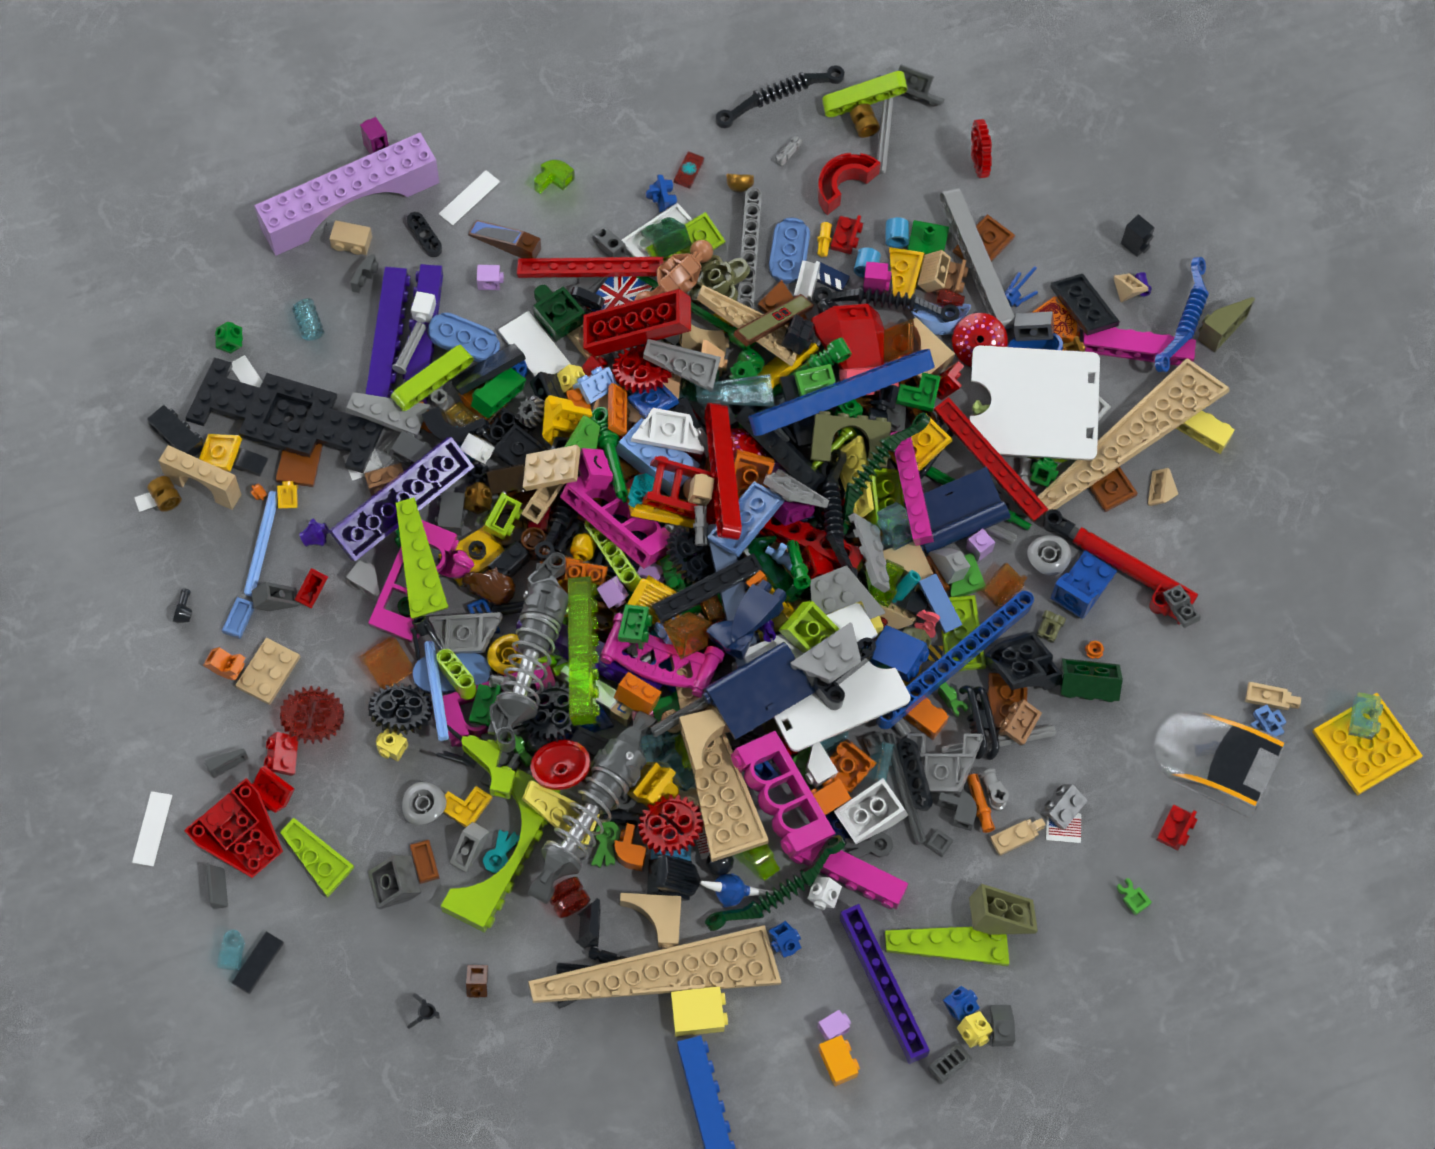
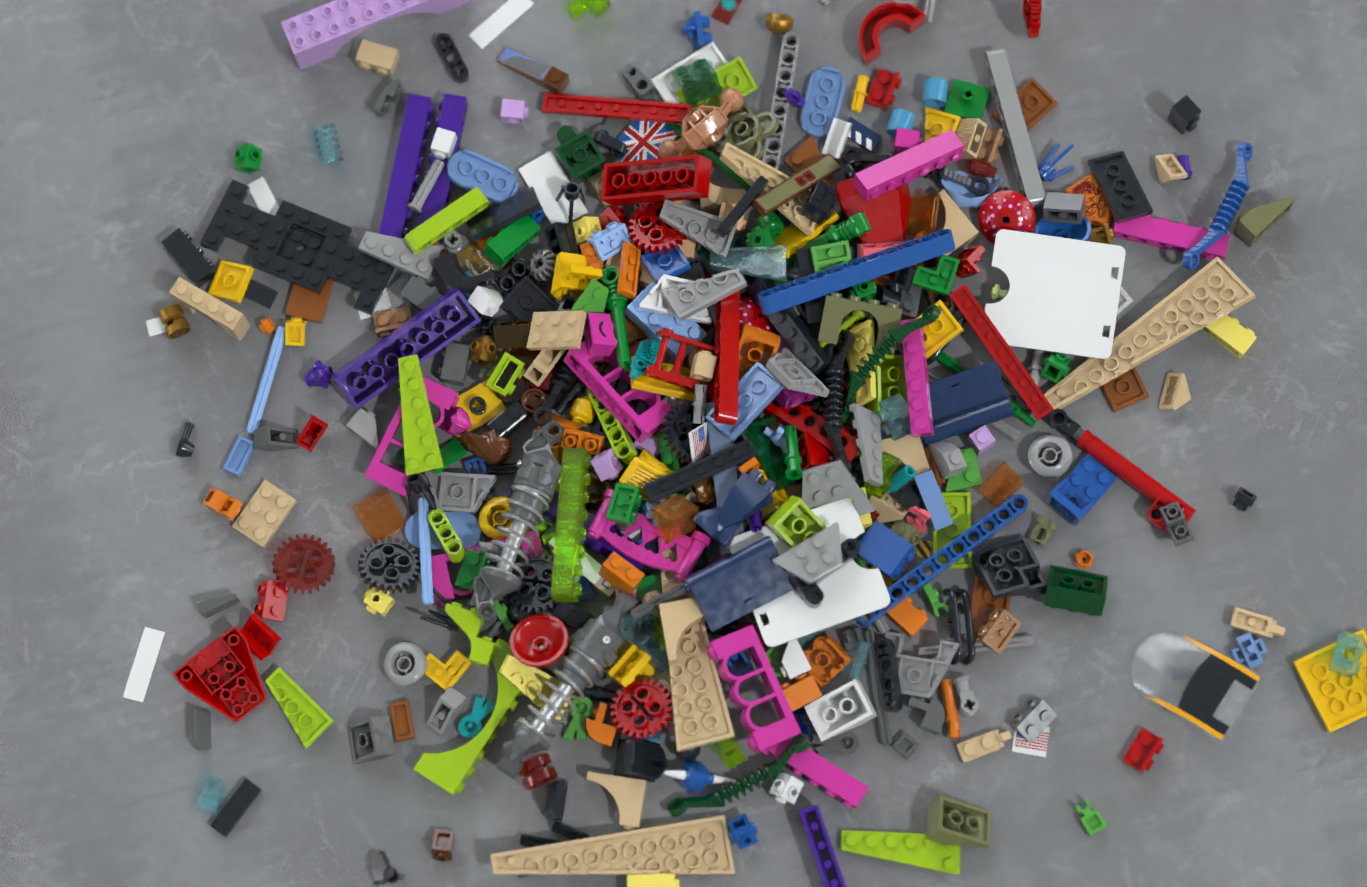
camera: 15 degrees right, 10 degrees up
(454, 597) = (450, 454): none -> green tile
(553, 341) = (571, 193): none -> black plant
(685, 426) = (696, 296): none -> light grey wing
(703, 561) = (699, 442): none -> sticker
(724, 339) = (742, 206): none -> black beam
(762, 244) = (794, 97): none -> dark purple axle
(880, 293) = (908, 165): none -> brick
(1243, 579) = (1245, 497): none -> black tile

